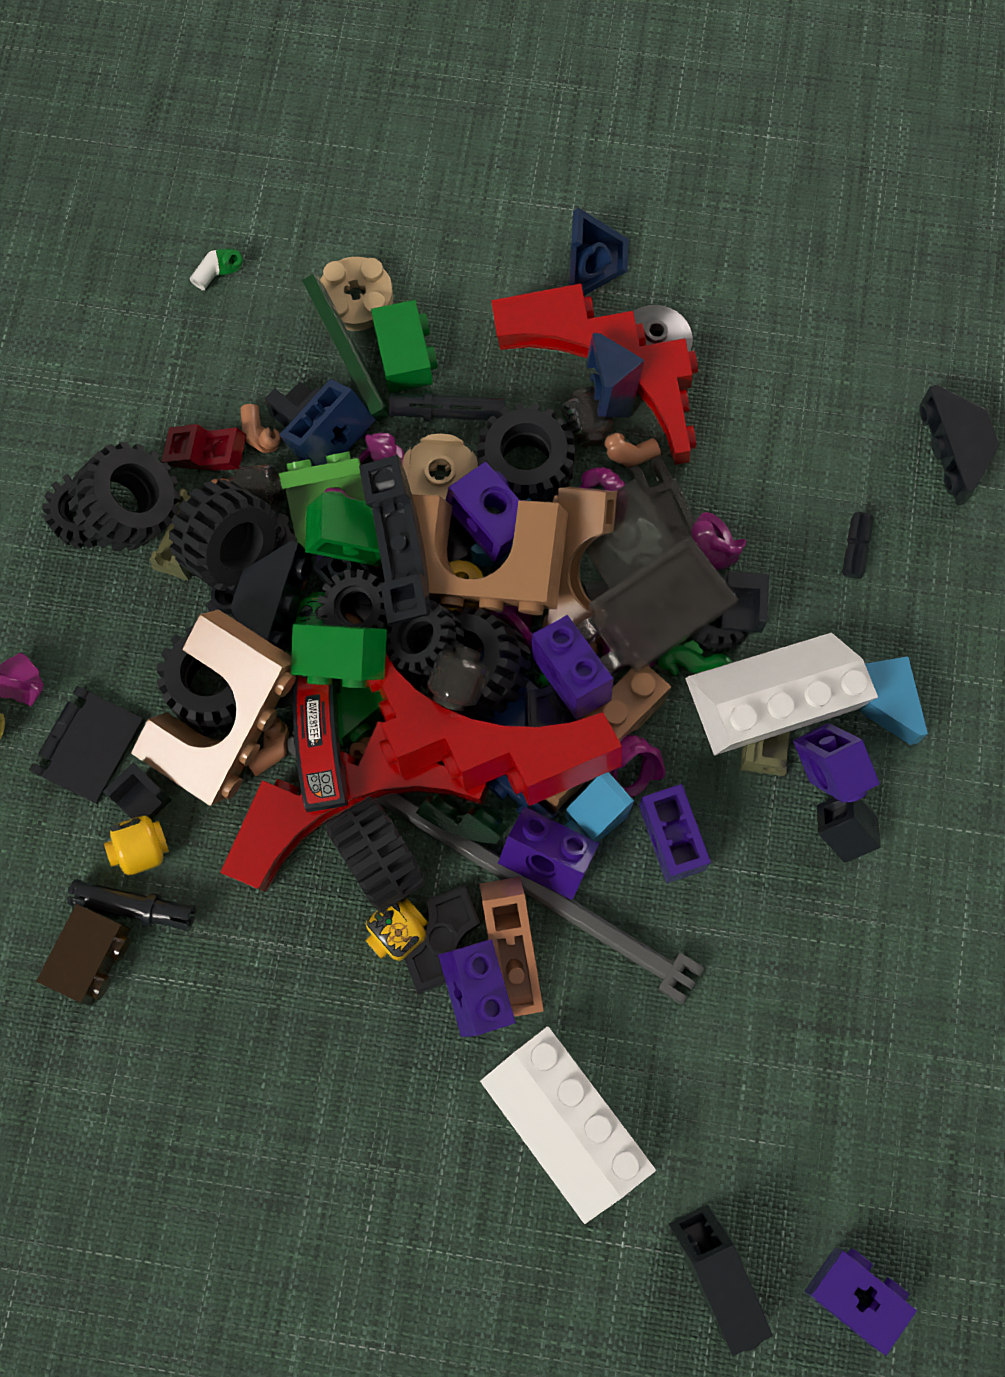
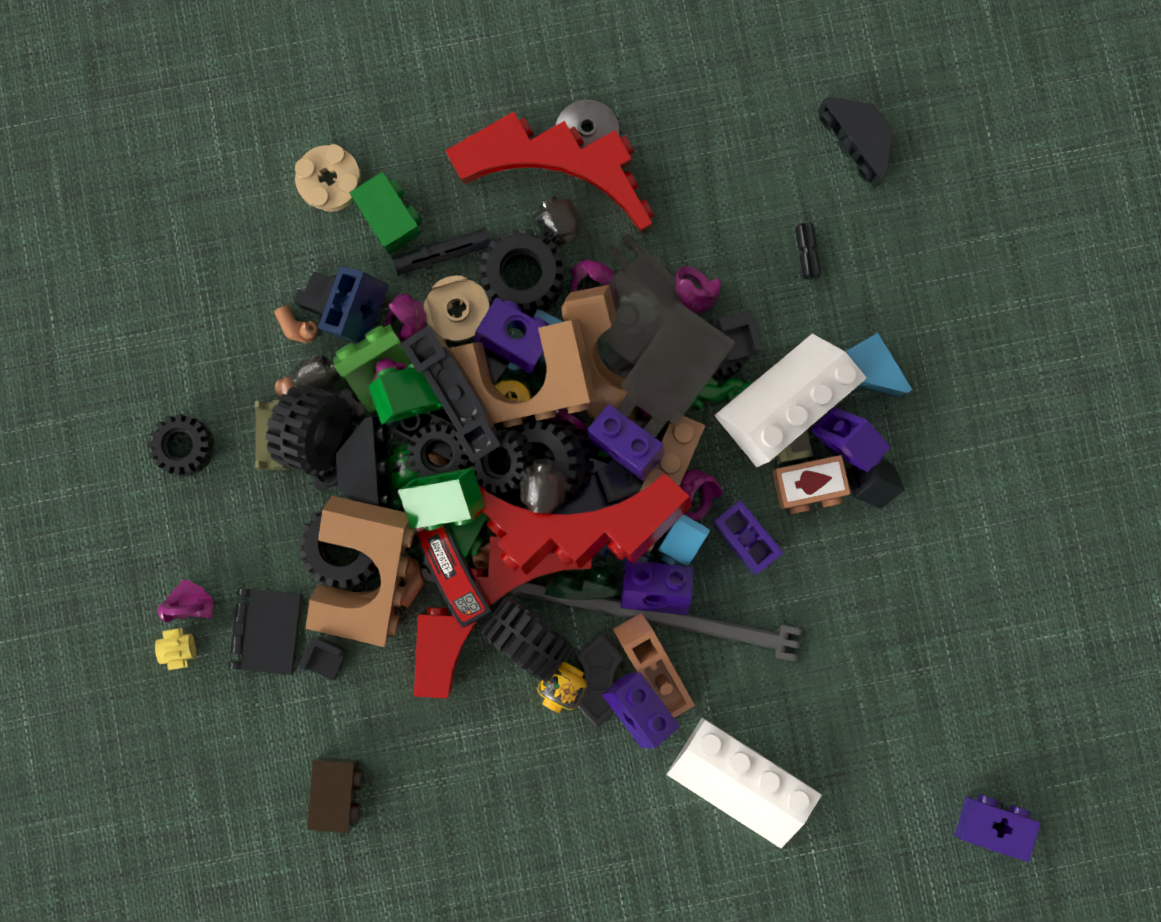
camera: 20 degrees left, 10 degrees up
(136, 845) = (338, 696): yellow head -> none
(143, 477) = (232, 409): black tyre -> none
(148, 909) = (348, 743): black pin -> none
(202, 449) = (258, 357): dark red slope -> none
(215, 264) = (203, 193): arm -> none
(346, 347) = (341, 232): dark green tile -> none
(596, 252) = (513, 75): dark blue slope -> none
(616, 376) = (571, 182): dark blue slope -> none
(630, 454) = (602, 239): nougat arm -> none
(721, 1280) = (893, 851): black slope -> none
(772, 802) = (811, 483): none -> brick

